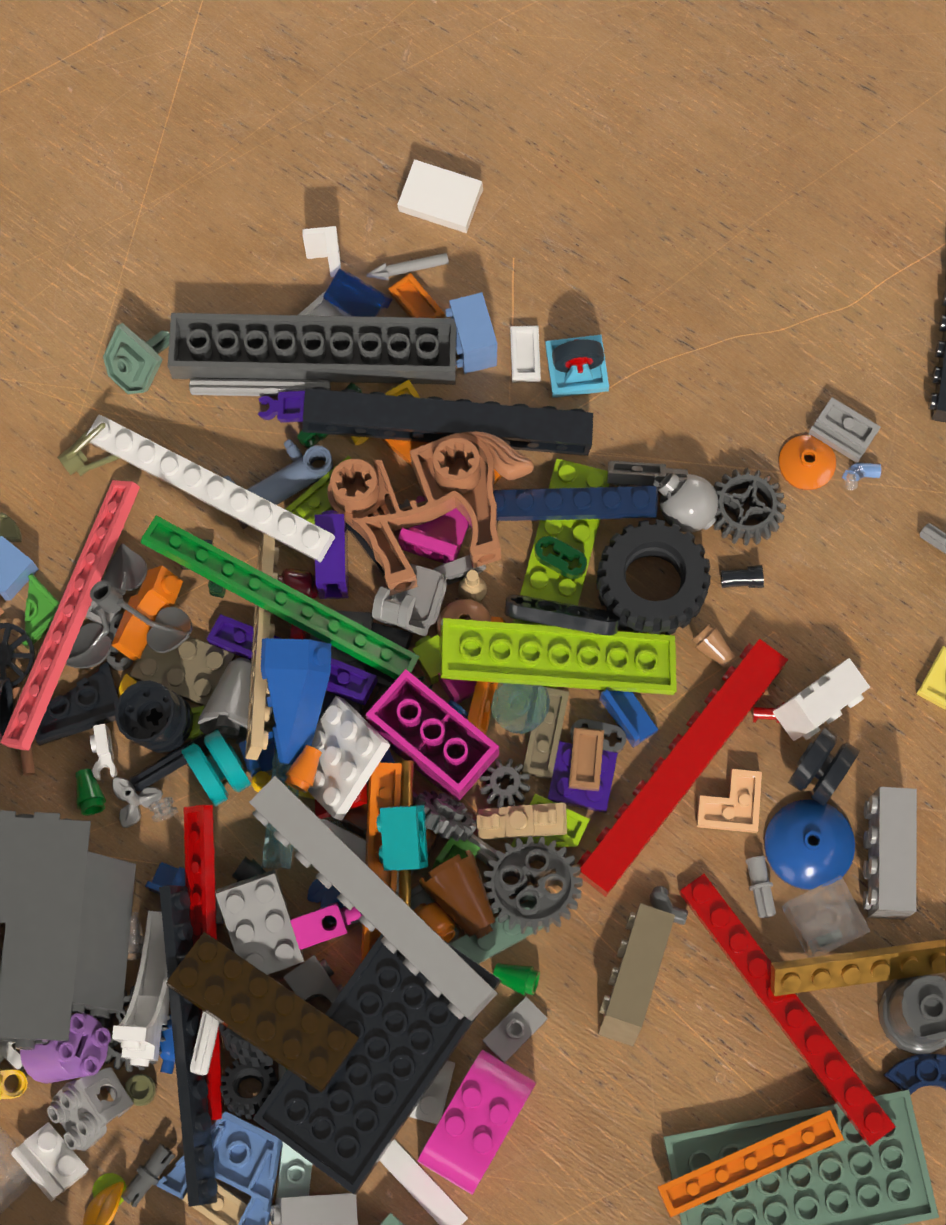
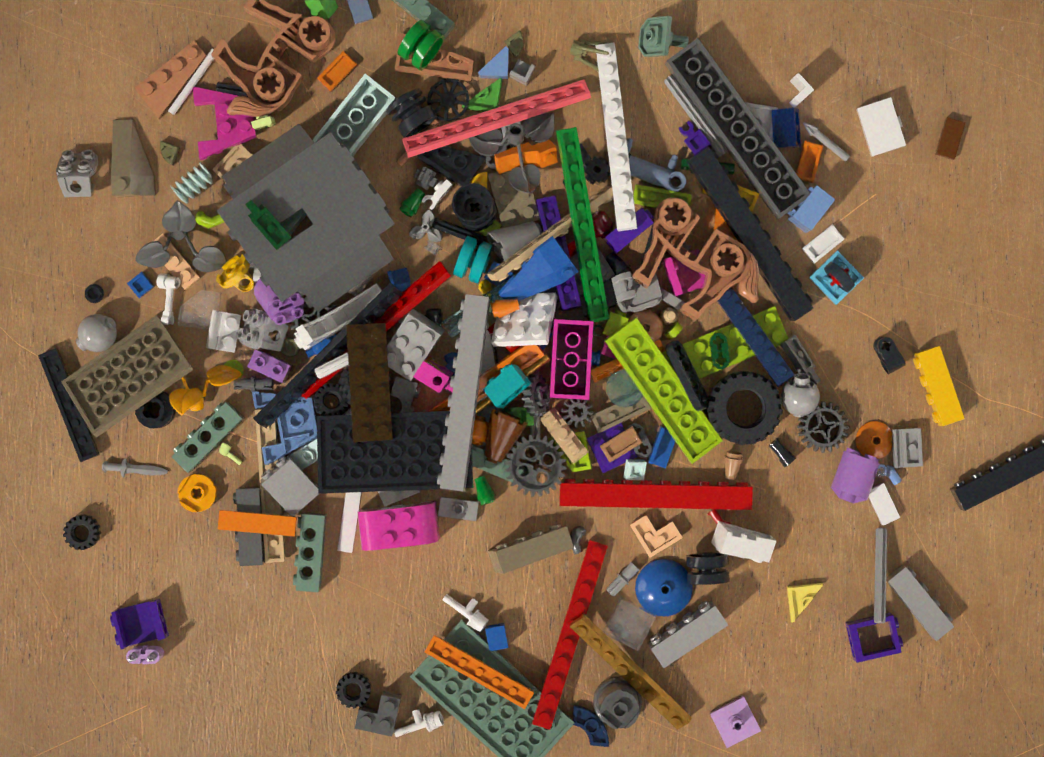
camera: 50 degrees right, 15 degrees up
(44, 544) = (522, 72): none -> light grey panel
(71, 752) = (425, 178): none -> dark grey gear
(142, 1133) = (270, 366): none -> medium lavender brick
(232, 531) = (593, 177): none -> black brick
(360, 601) = (617, 264): none -> black cone
(495, 595) = (673, 331): none -> lime tile
(513, 135) = (950, 138): none -> reddish brown tile
(631, 767) = (635, 469): none -> light aqua plate
(679, 1116) = (476, 620): none -> white piece
(716, 371) = (890, 356): none -> black piece
(720, 1105) = (496, 636): none -> blue panel
(795, 343) = (938, 385): none -> yellow brick
(835, 509) = (855, 476): none -> medium lavender cylinder
(894, 506) = (883, 504): none -> white tile

